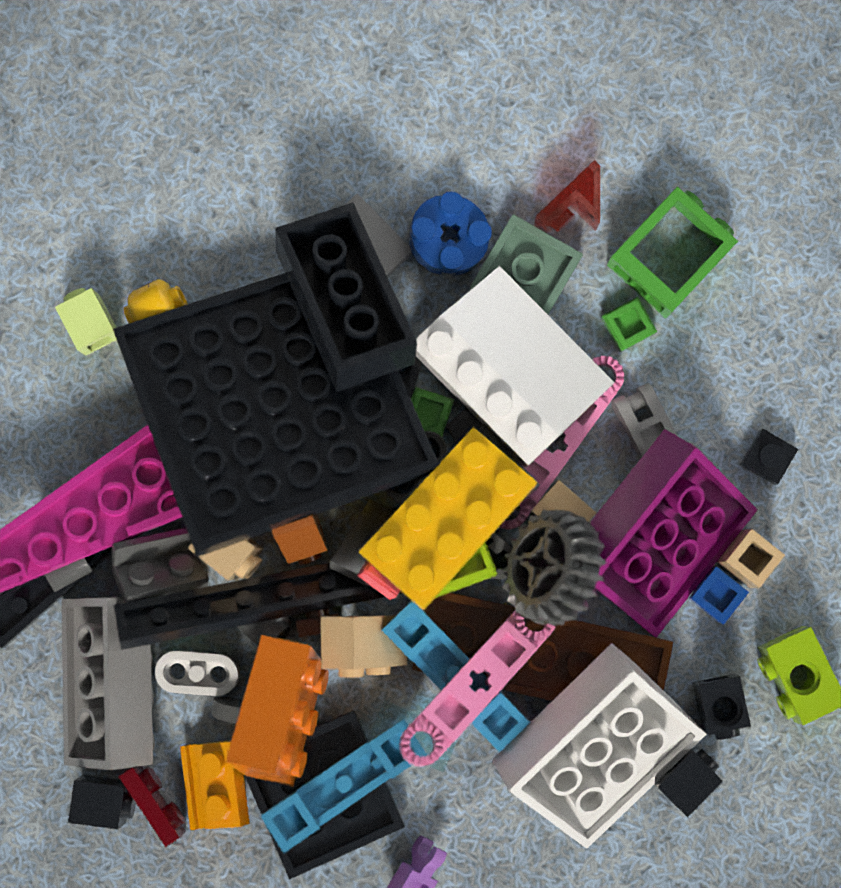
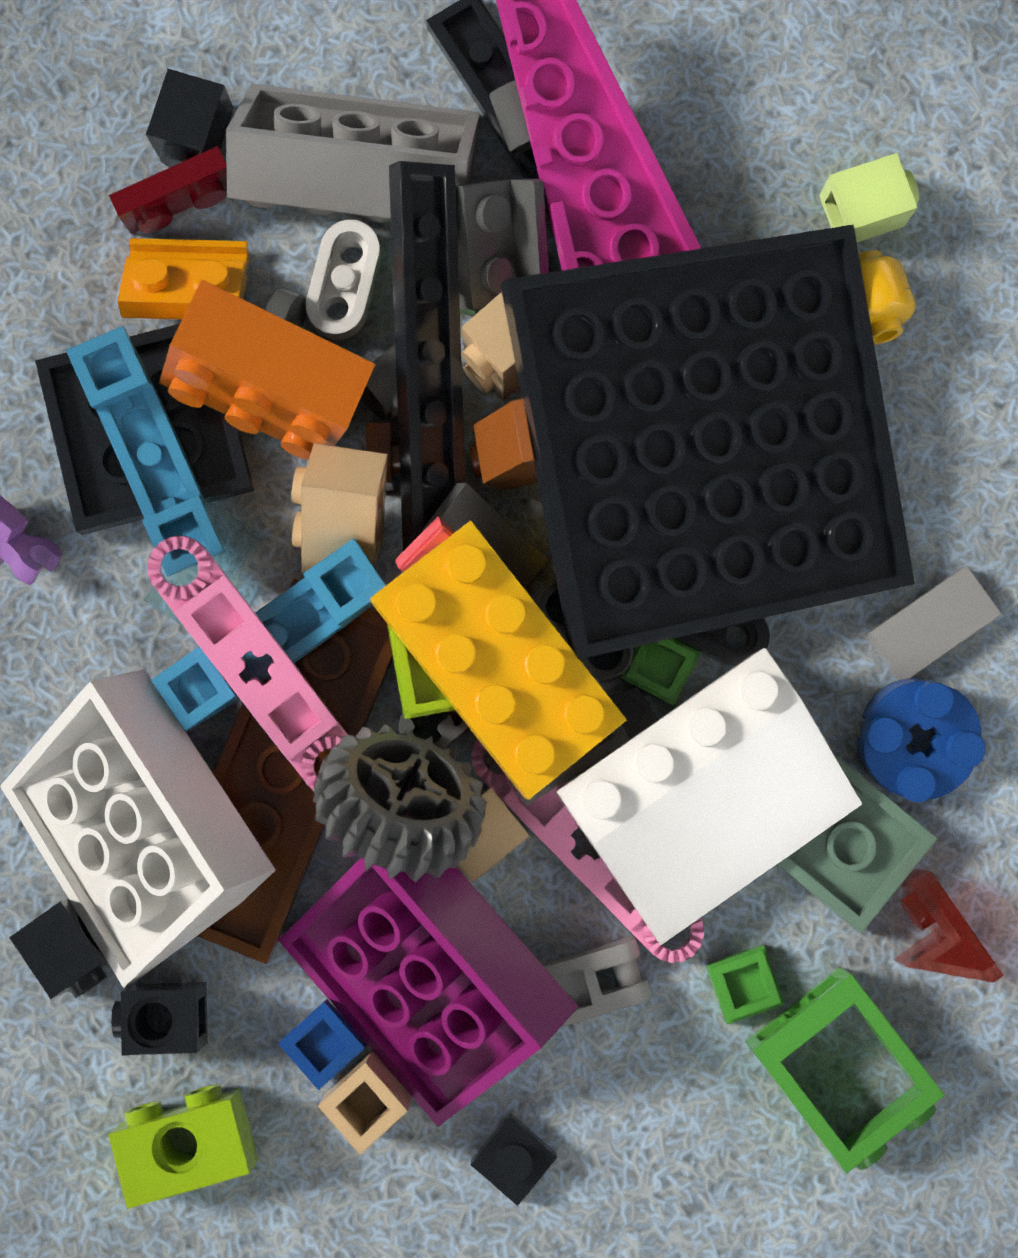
camera: 95 degrees right, 0 degrees up
(345, 296) = (851, 564): black brick -> none

